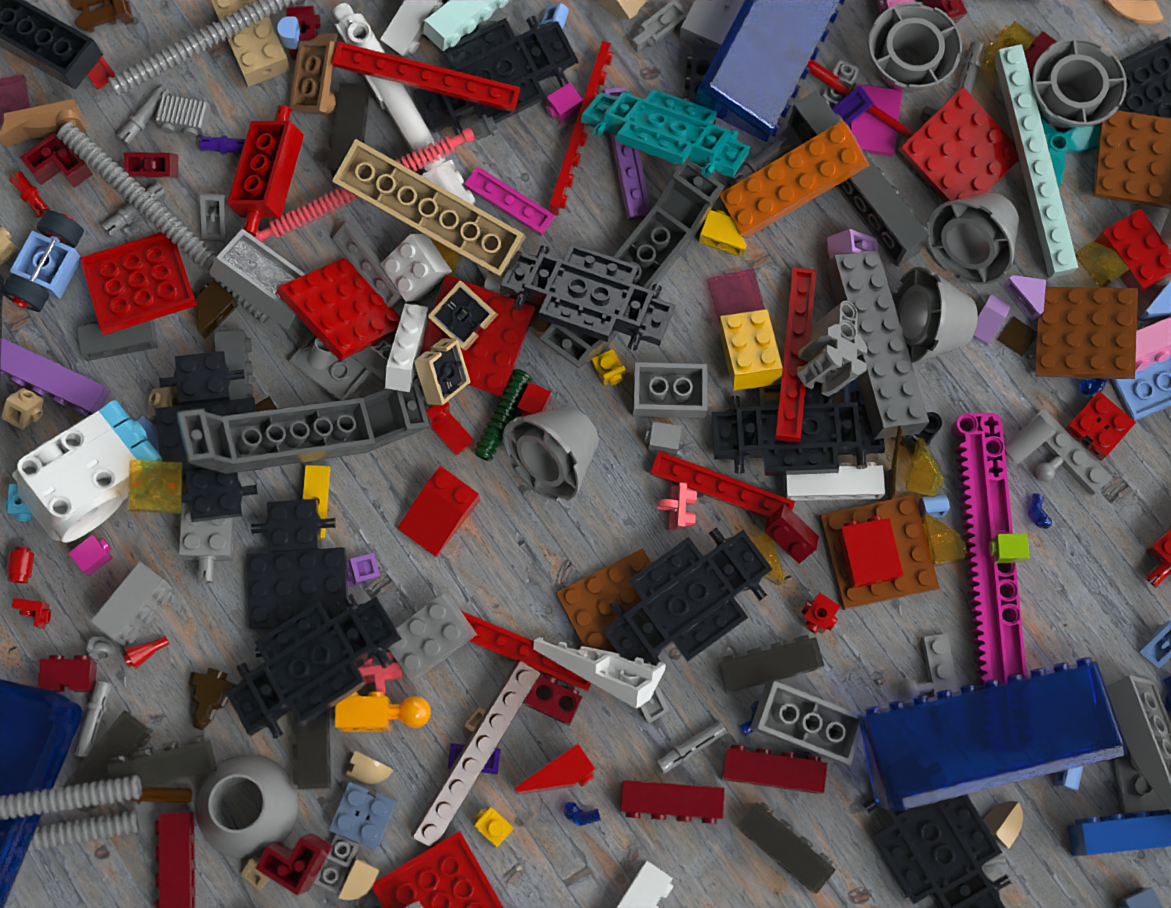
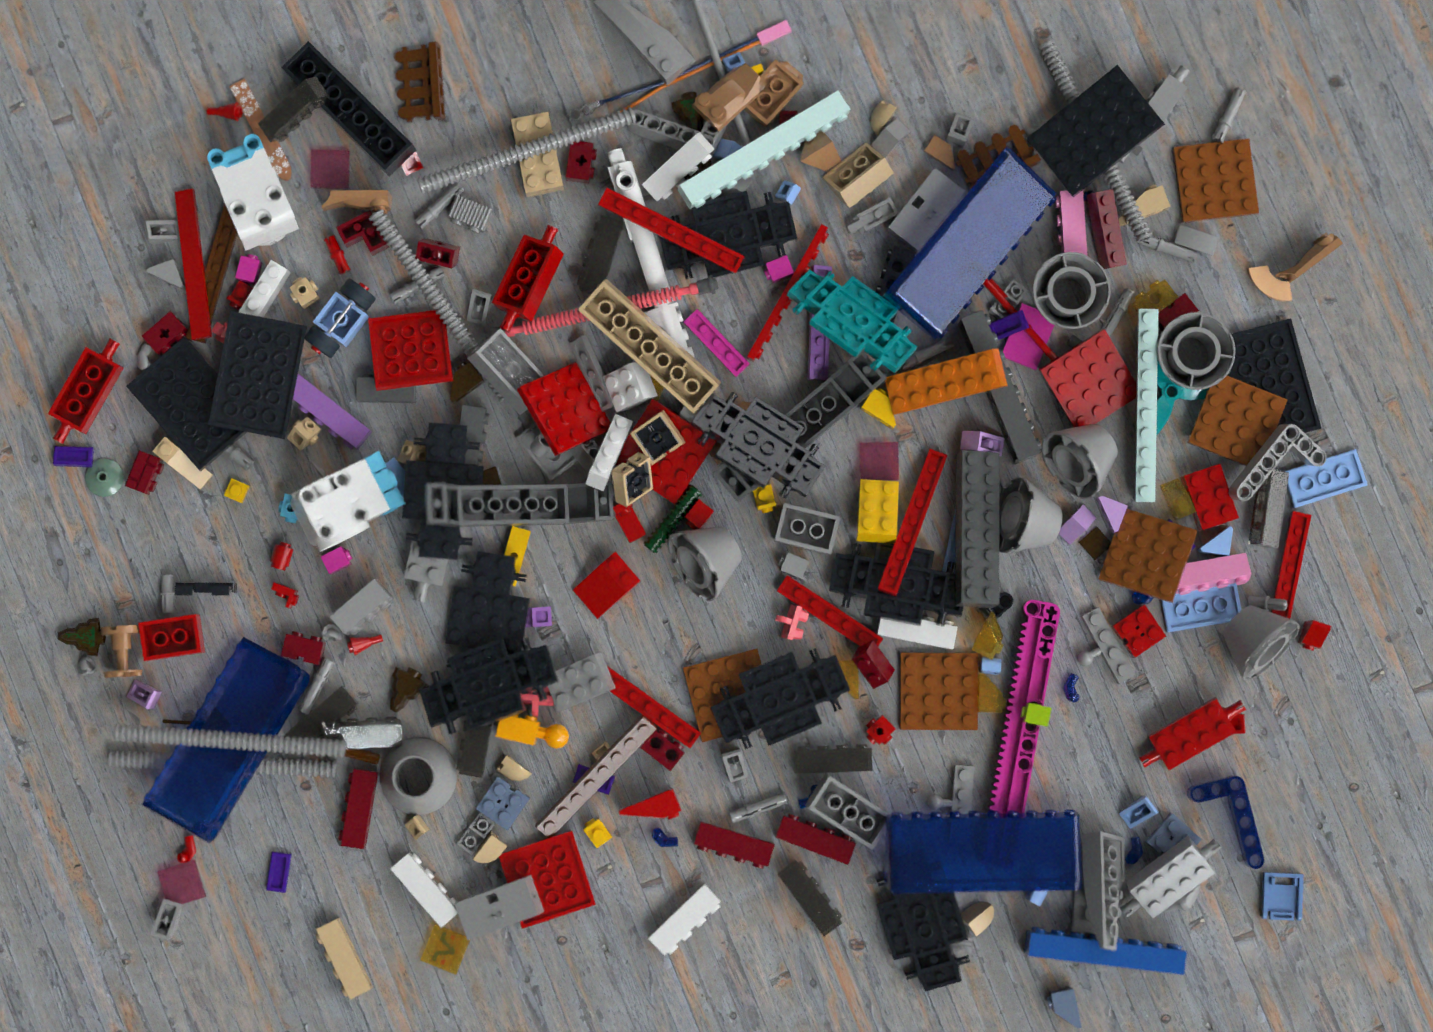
camera: 15 degrees right, 10 degrees up
(154, 486) = (396, 527): clear yellow tile -> none
(221, 144) = (498, 245): dark purple pin -> none
(289, 32) = (568, 165): light blue brick -> none
(296, 867) = (446, 831): dark red brick -> none
(313, 76) = (582, 205): medium nougat slope -> none
(622, 678) = (717, 748): white wedge -> none
(833, 349) = (939, 530): light grey connector -> none
(870, 552) = (929, 692): red brick -> none
(892, 472) = (966, 626): dark brown piece -> none
(1028, 440) = (1077, 631): light grey brick -> none

